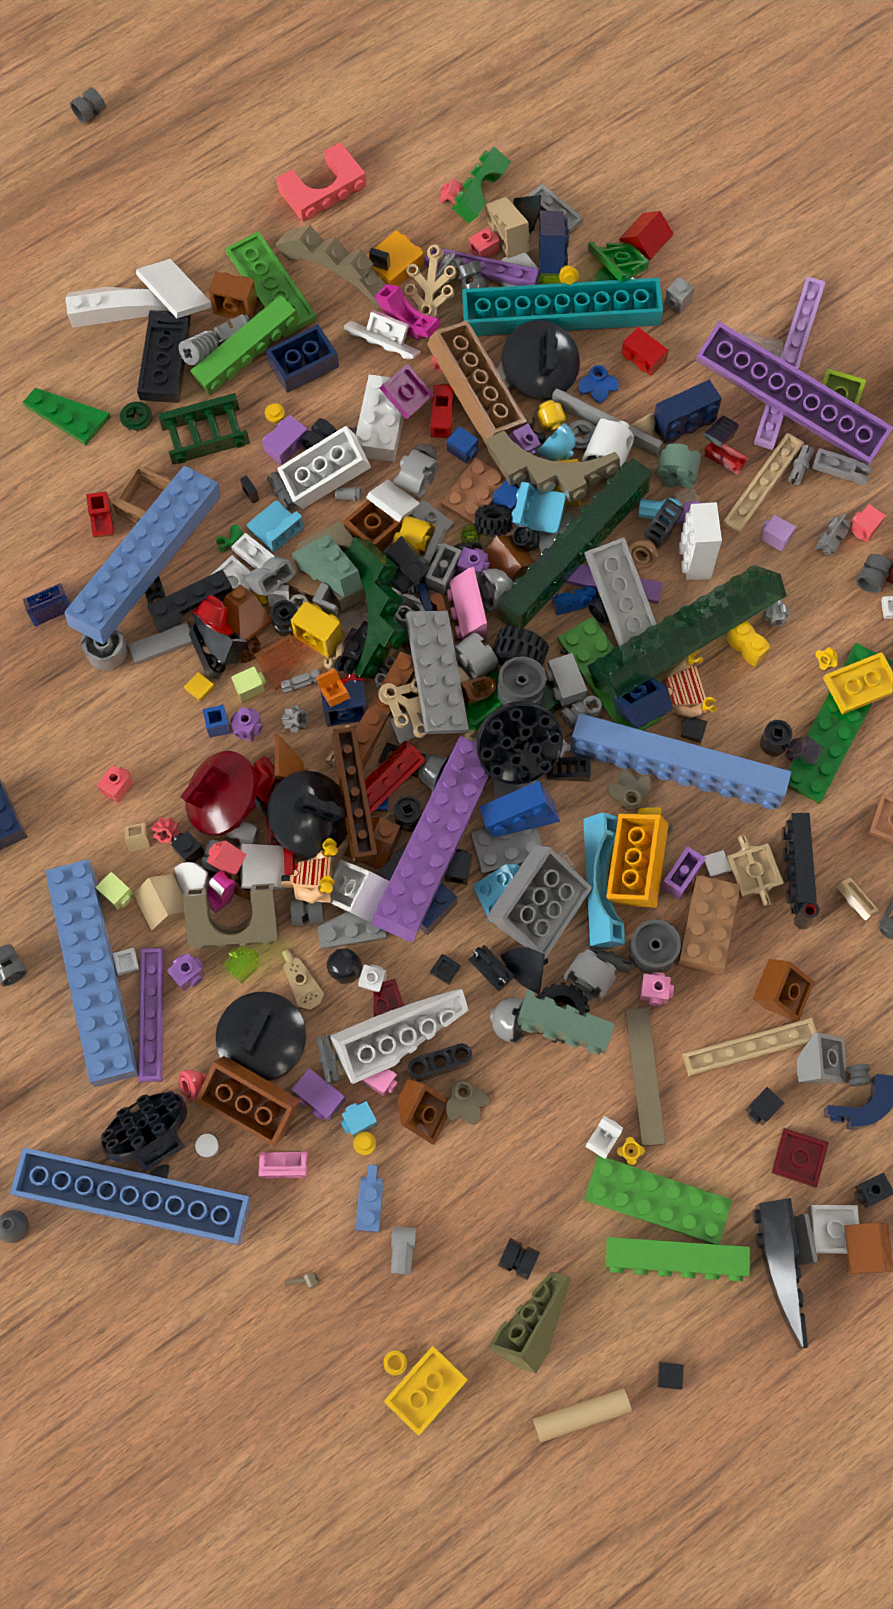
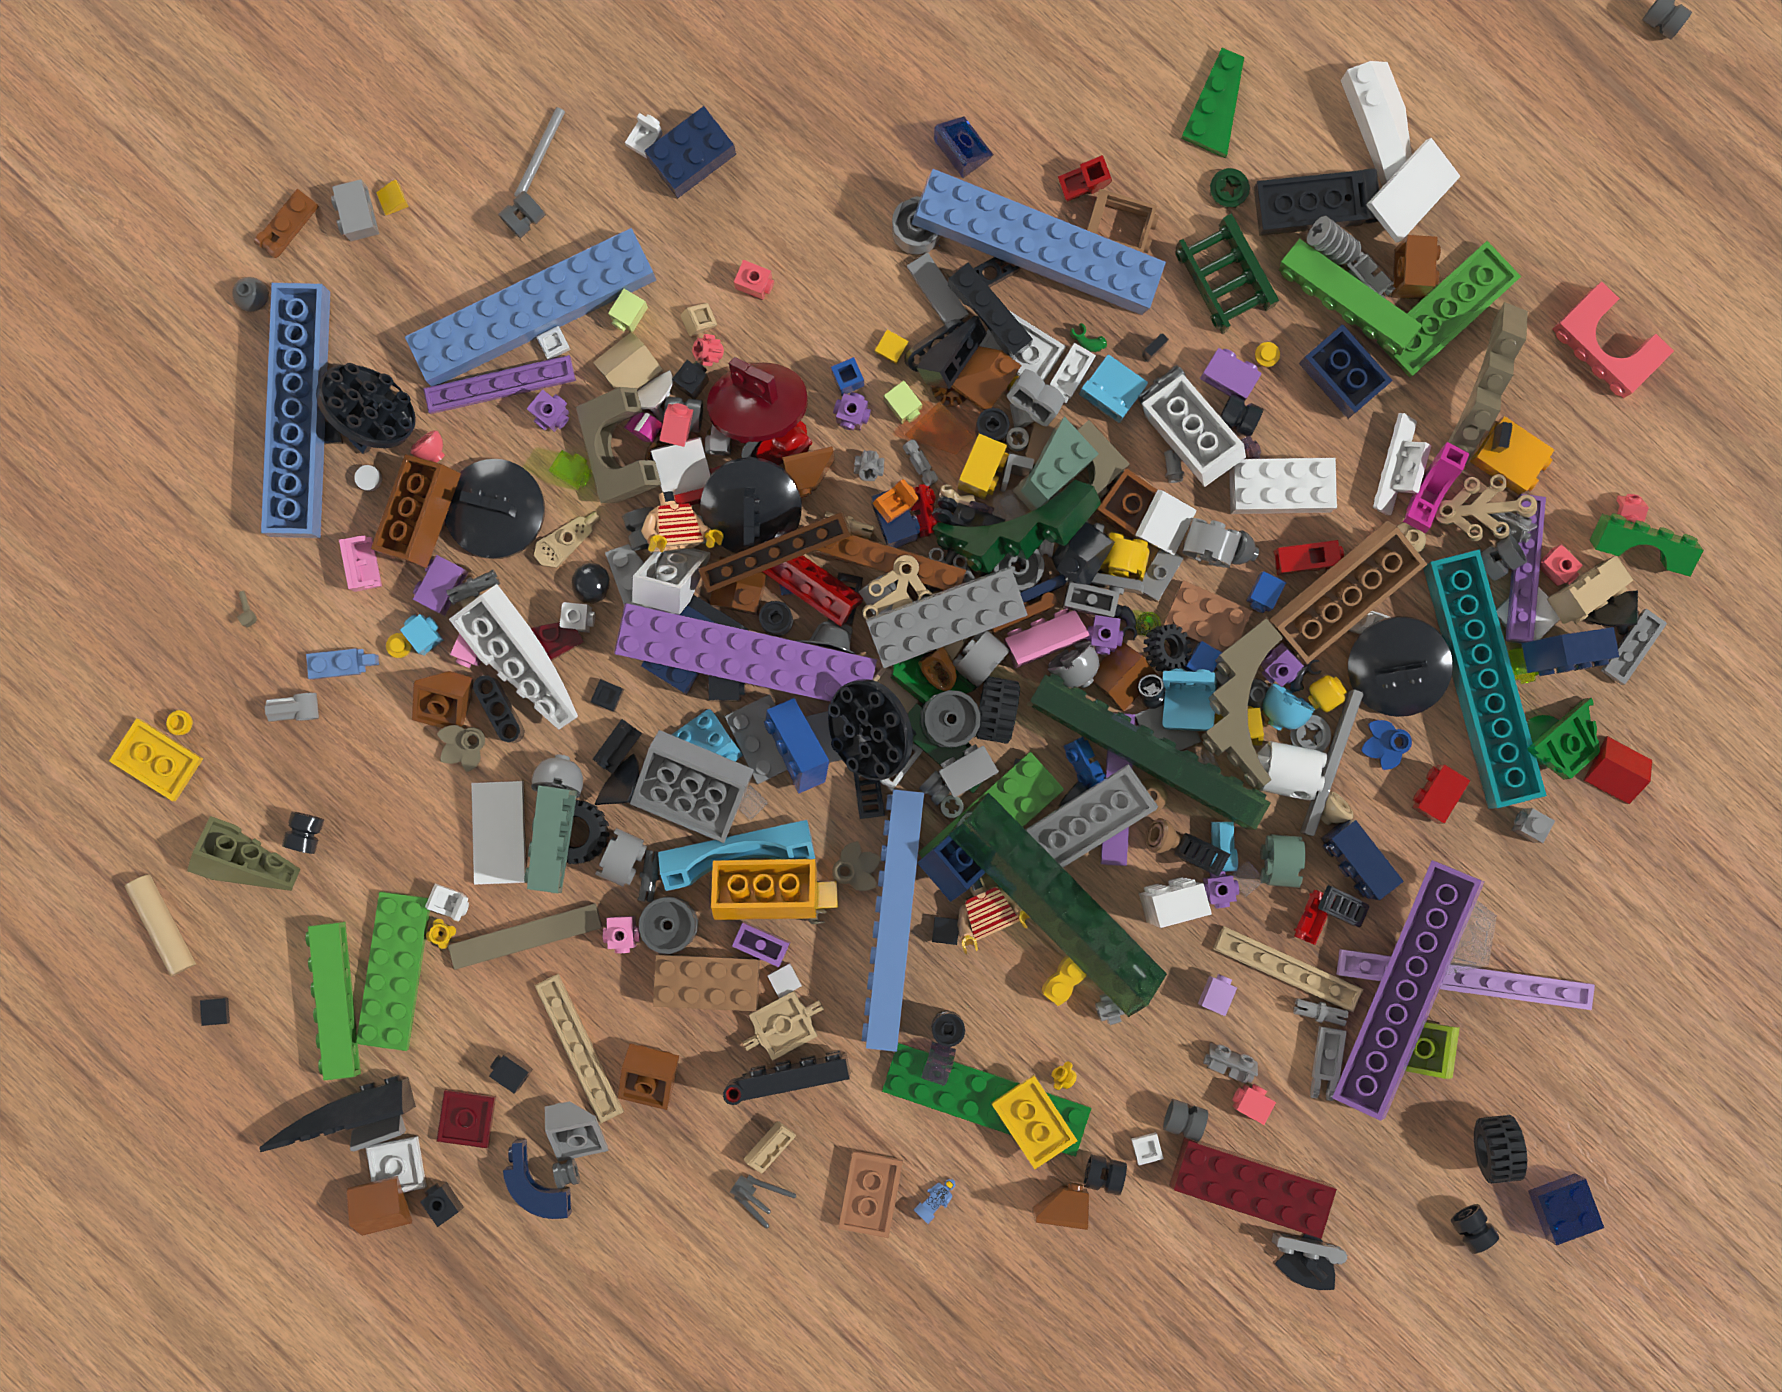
camera: 75 degrees right, 15 degrees up
(214, 615) = (968, 343): red piece -> none
(406, 391) = (1315, 509): magenta plate -> none
(549, 1084) = (498, 832): none -> white tile
(568, 275) = (1524, 680): yellow plate -> none

